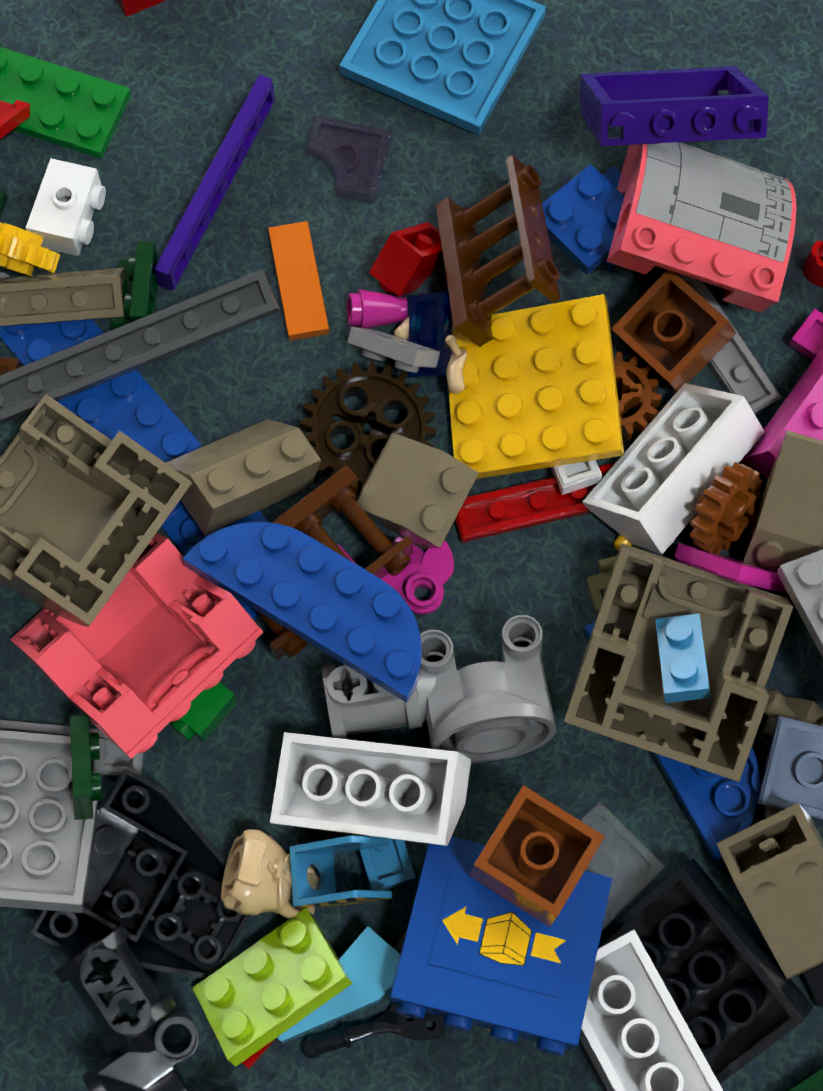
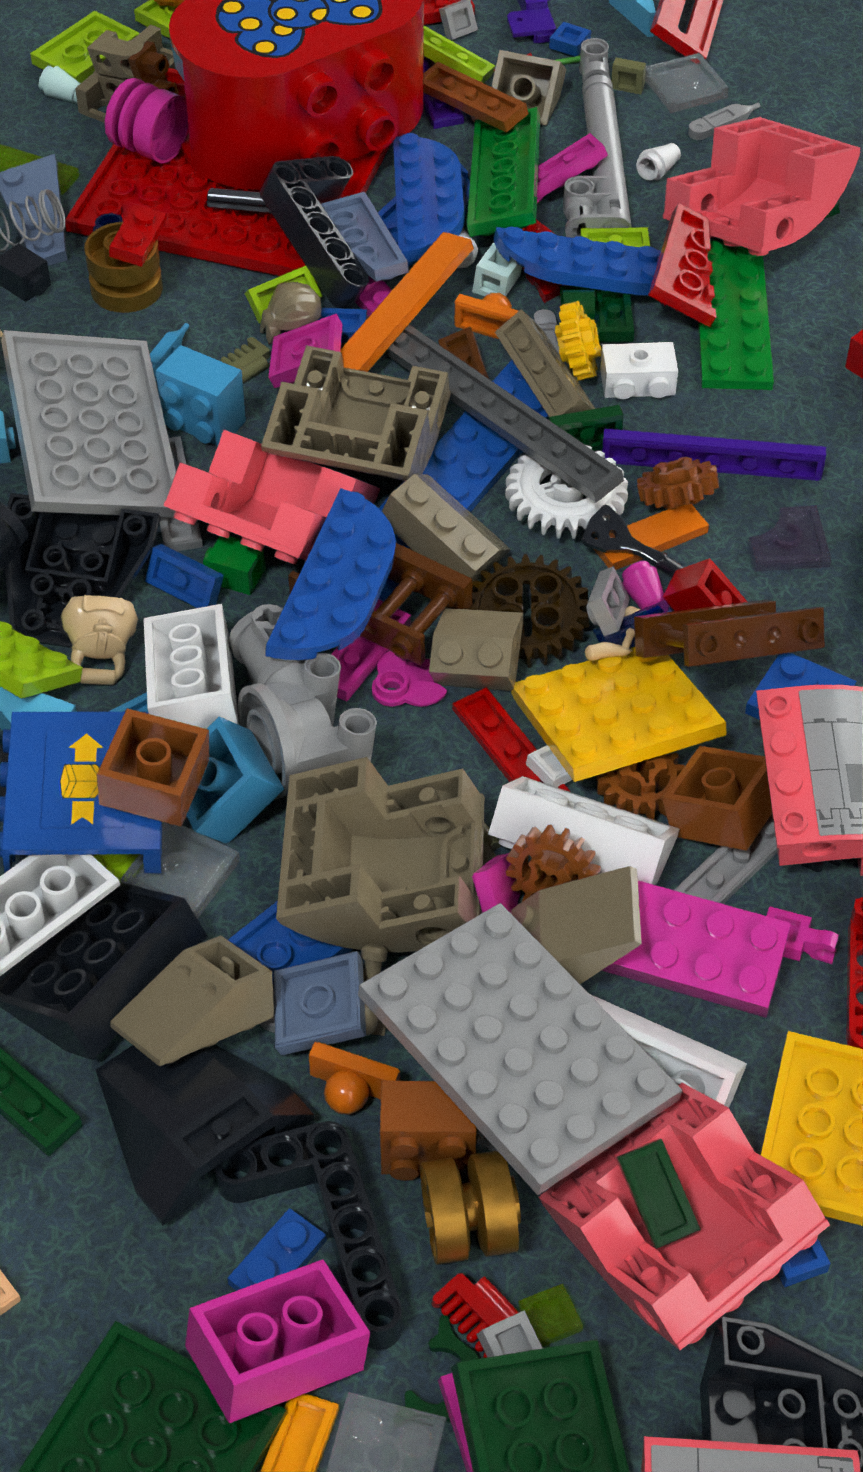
camera: 75 degrees right, 20 degrees down
(85, 784) = (141, 482): dark green plate -> none
(202, 765) = (183, 577): none -> blue plate
(229, 367) = (555, 501): none -> white gear
(250, 228) = (678, 483): none -> dark orange gear
(312, 305) = (623, 540): none -> black piece
(322, 857) = (132, 676): dark azure piece -> none
(506, 766) = (234, 785): none -> dark azure brick
(682, 658) = (387, 857): dark azure plate -> none

